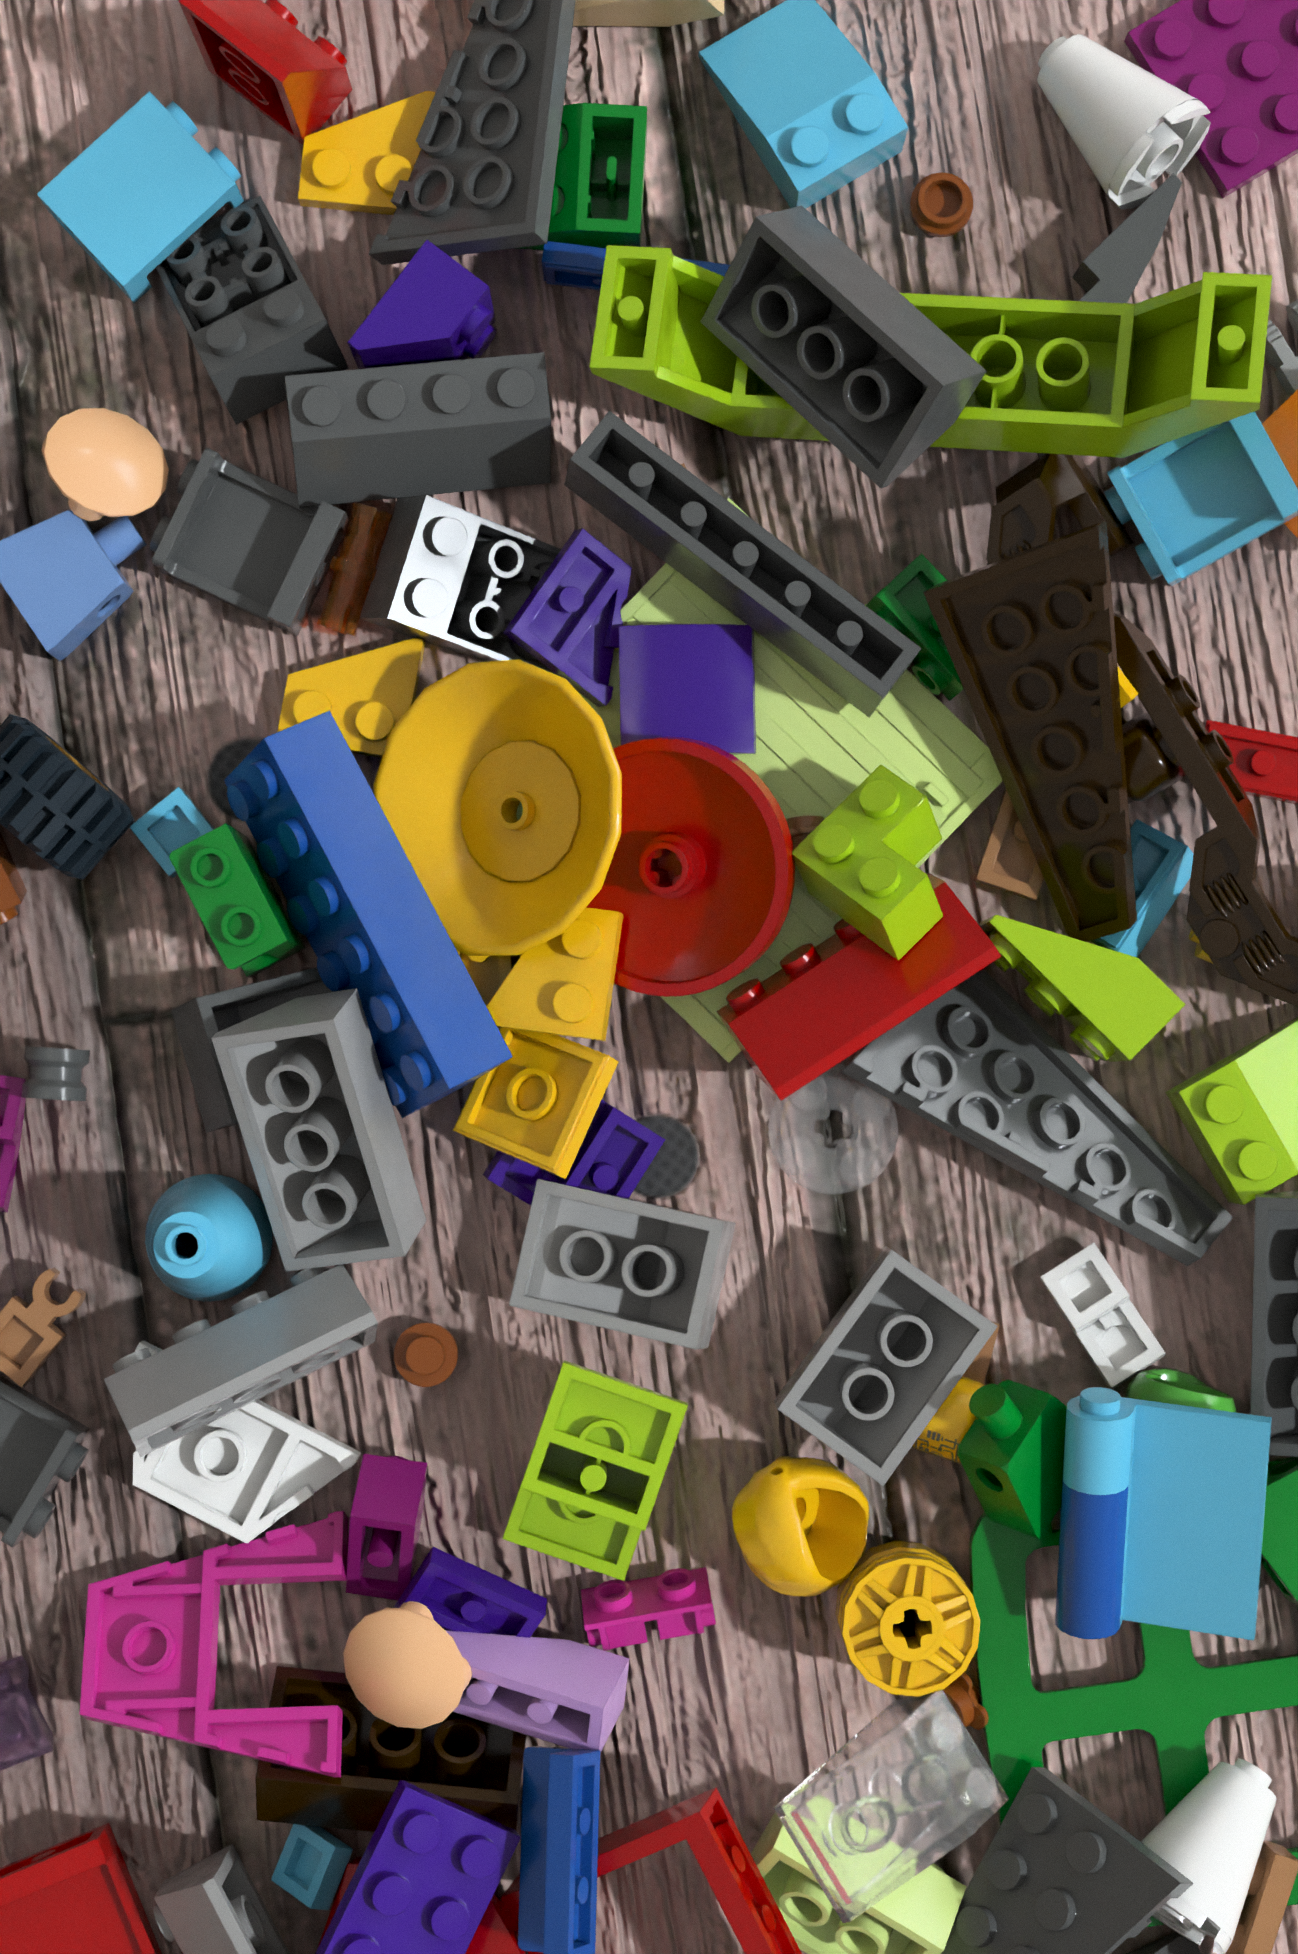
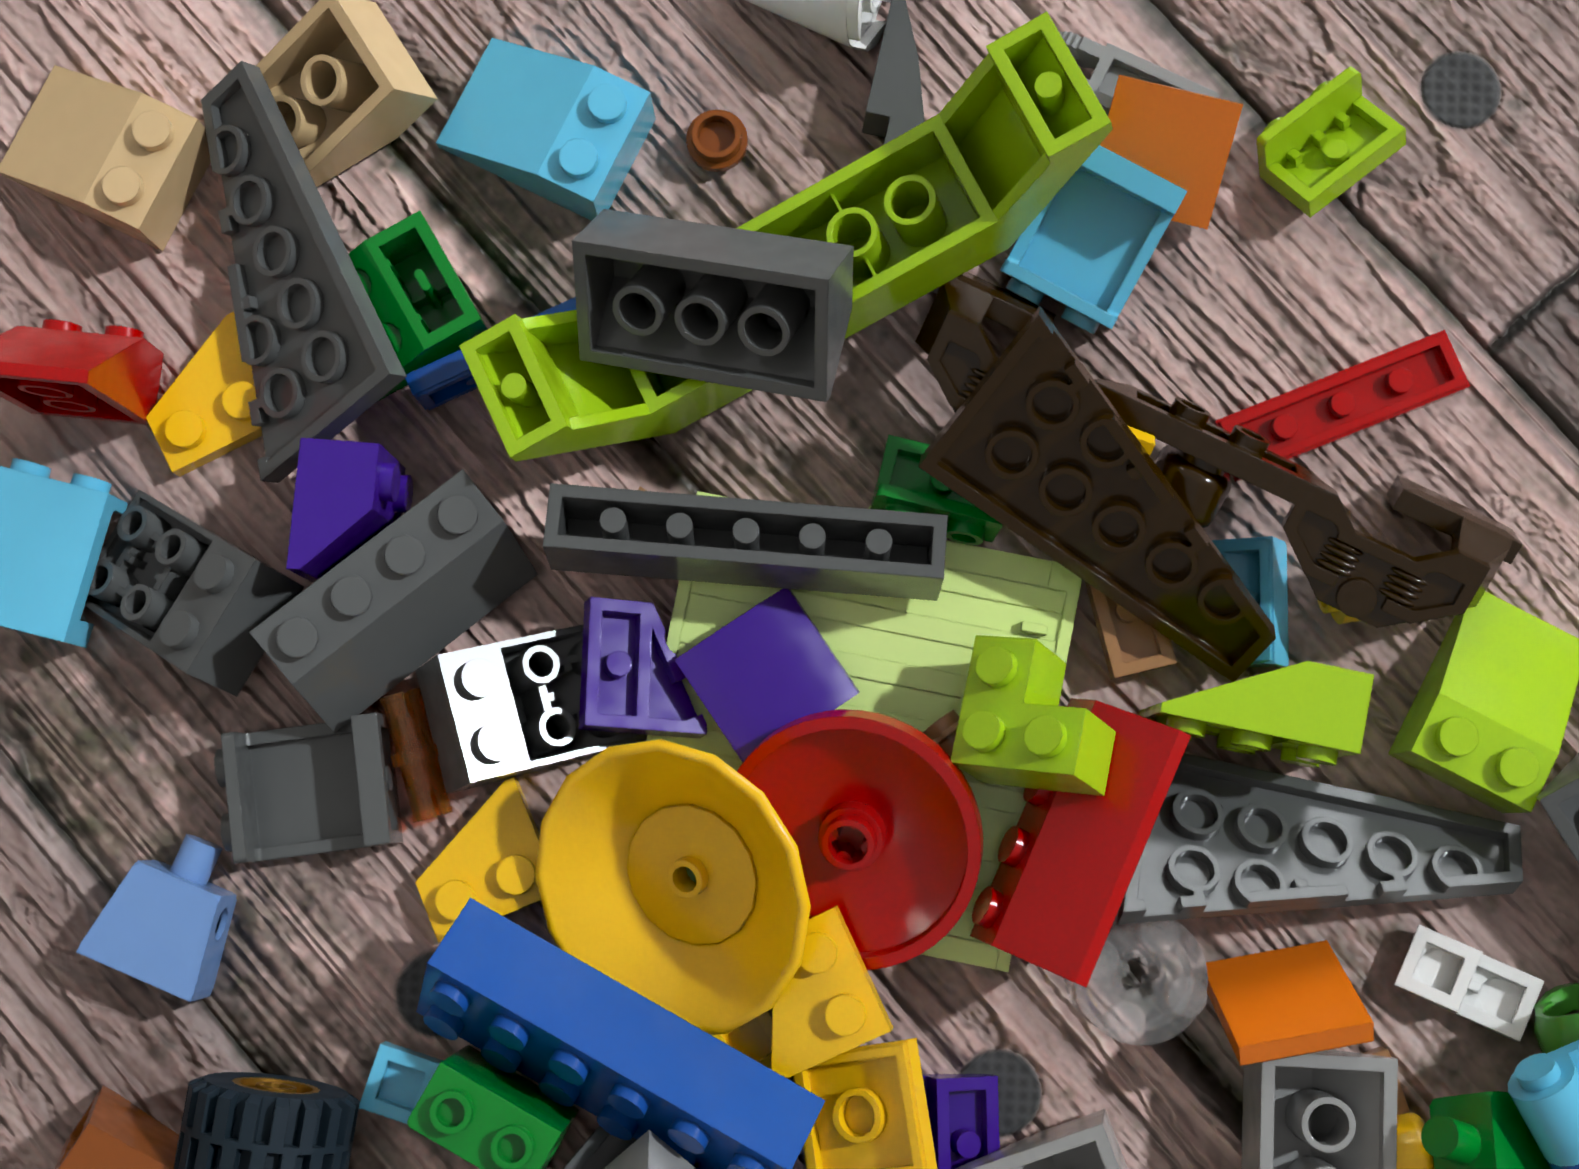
camera: 30 degrees left, 5 degrees down
(105, 463) = (142, 803): light nougat dish -> none
(938, 1228) = (1287, 1003): none -> orange tile

